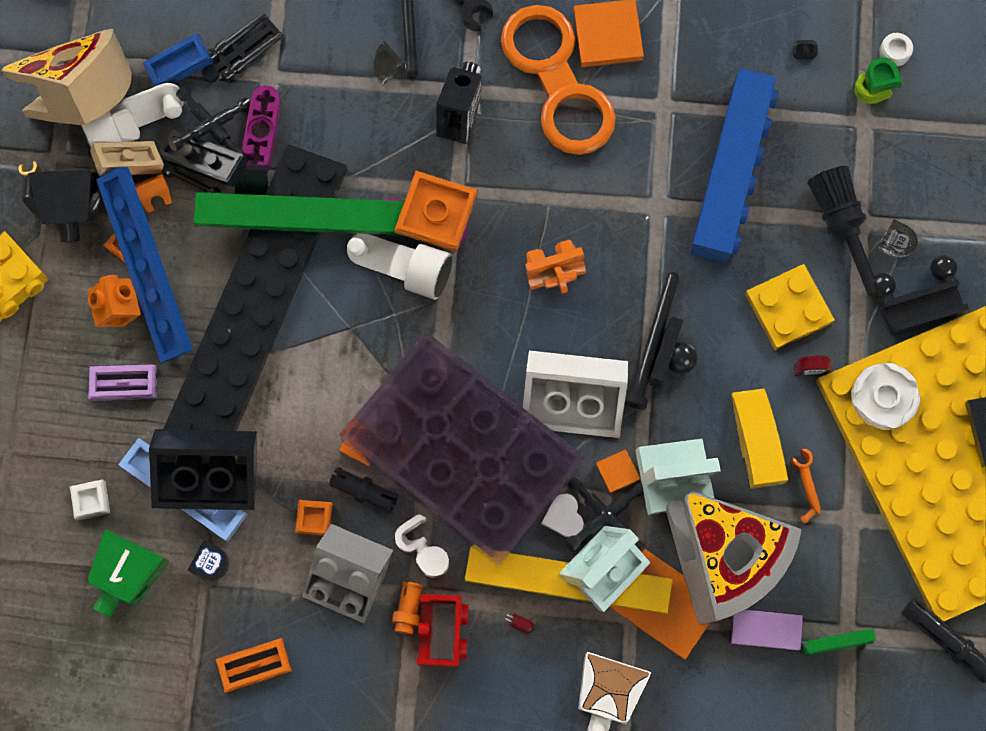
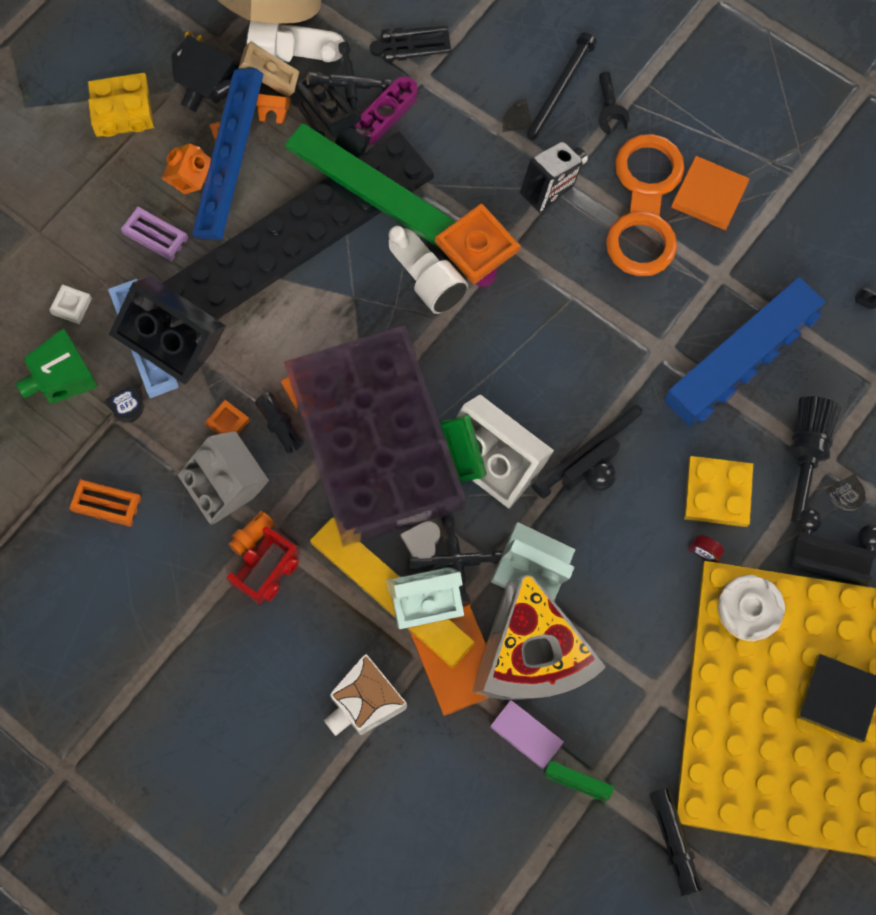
camera: 30 degrees right, 5 degrees down
(178, 61) = (358, 24): blue tile -> none
(431, 560) = (292, 505): white leg -> none
(520, 623) = (331, 603): dark red piece -> none
(548, 409) = (463, 448): none -> green tile
(555, 269) = (545, 345): orange hips -> none
(617, 471) = (489, 533): orange tile -> none
(759, 439) = (621, 578): yellow slope -> none
(808, 485) = (638, 642): orange piece -> none

